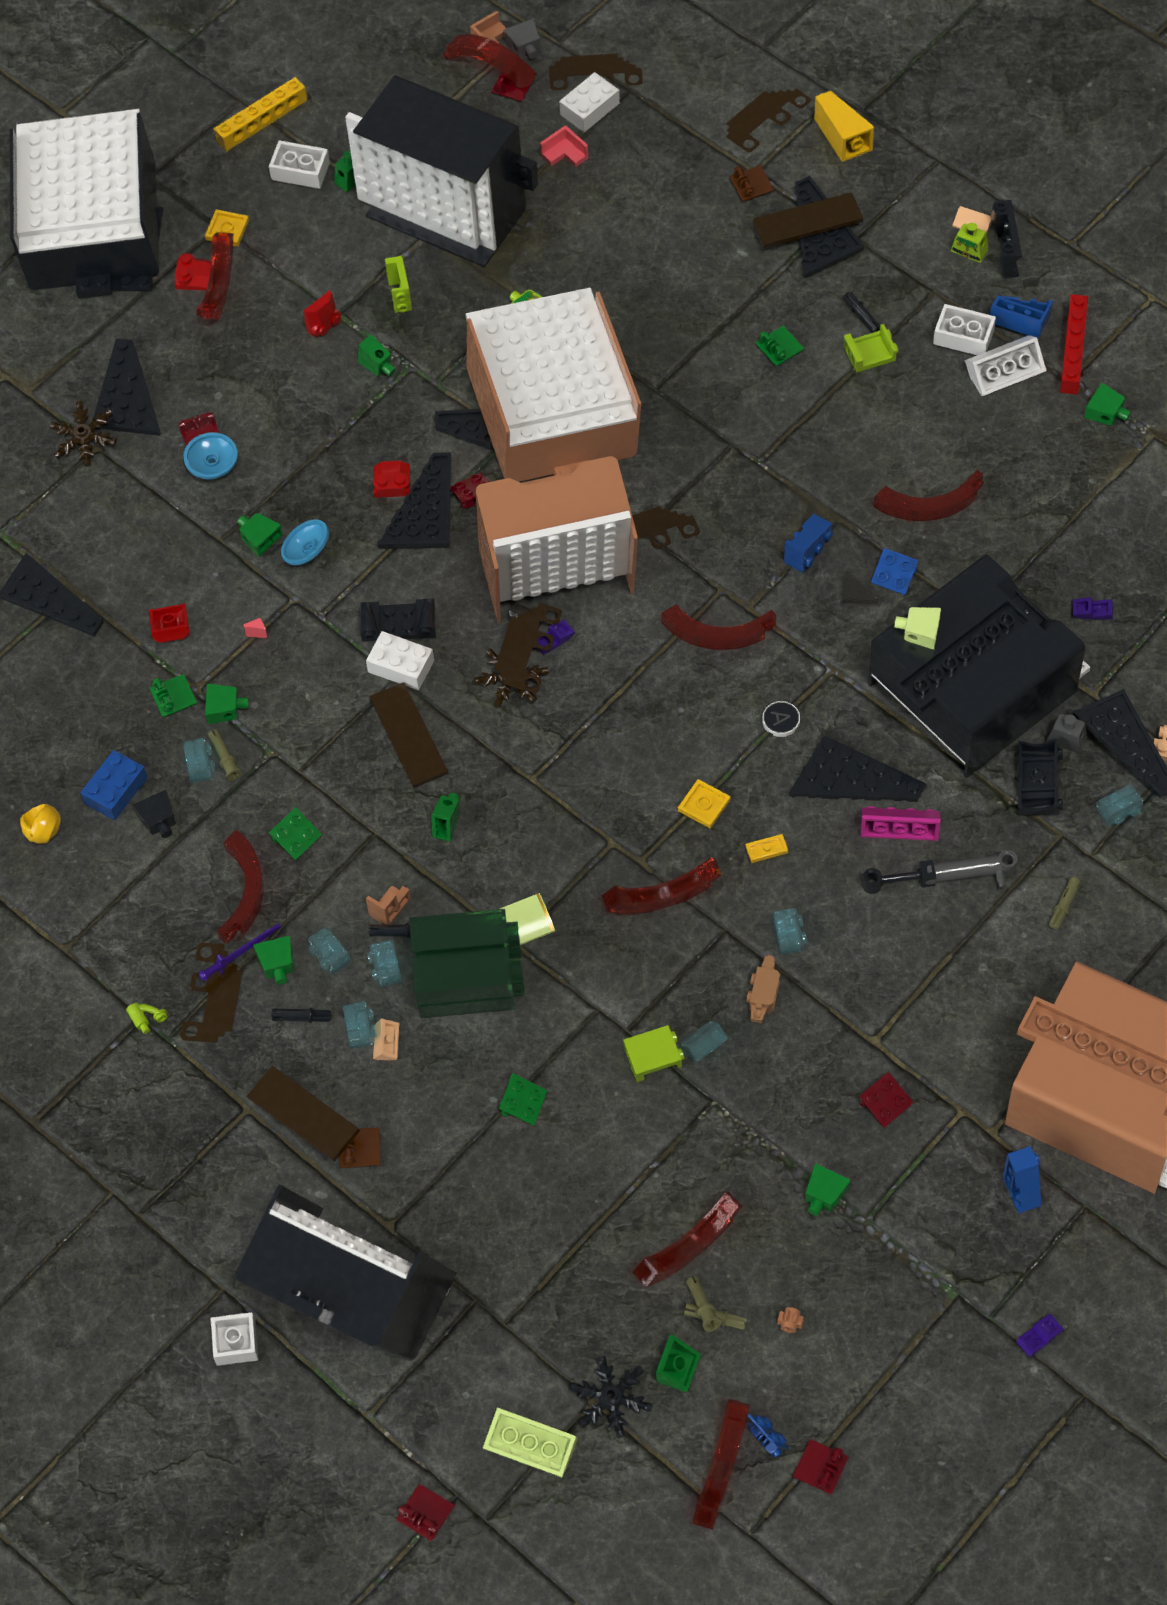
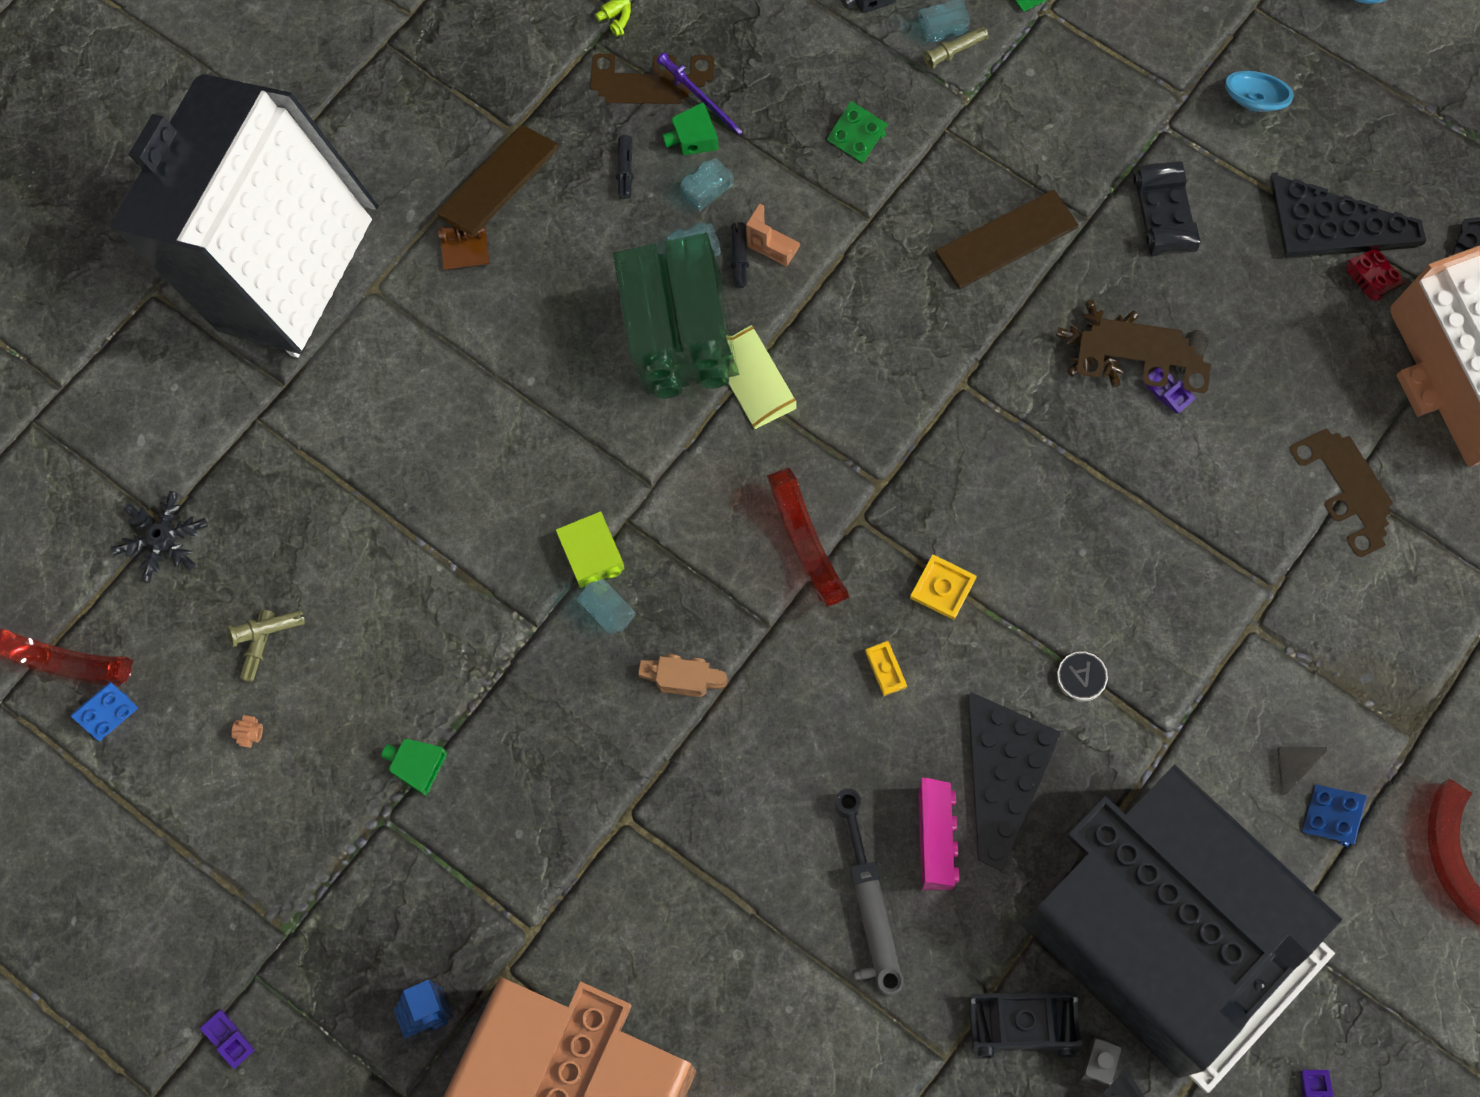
camera: 85 degrees right, 10 degrees up
(223, 703) = (1022, 35): green torso -> none
(252, 899) = (784, 97): clear red arch -> none
(255, 629) = (1132, 56): coral slope -> none
(259, 532) = (1267, 42): green torso -> none
(358, 1025) = (613, 226): clear light blue brick -> none
(386, 1041) = (595, 260): light nougat slope -> none
(391, 479) = (1375, 180): red slope -> none
(400, 660) = (1106, 215): white brick -> none
(425, 1512) = (39, 357): dark red hinge -> none
(446, 809) = (893, 287): green torso -> none
(522, 1099) = (526, 410): green hinge -> none
(530, 1442) = (113, 457): yellowish green slope -> none
(556, 532) = (1282, 337): piece -> none
(677, 1365) = (196, 605): green slope -> none
(678, 1255) = (334, 601): clear red arch -> none
(716, 637) = (1193, 588): clear red arch -> none
(788, 931) = (767, 702): clear light blue brick -> none
(809, 542) = (1361, 694): blue wedge -> none
(821, 1466) = (70, 777): dark red hinge -> none
(885, 1099) = (539, 834): dark red hinge -> none
(920, 626) = (1198, 826): yellowish green torso -> none
(1067, 898) = (836, 1063): olive axle -> none

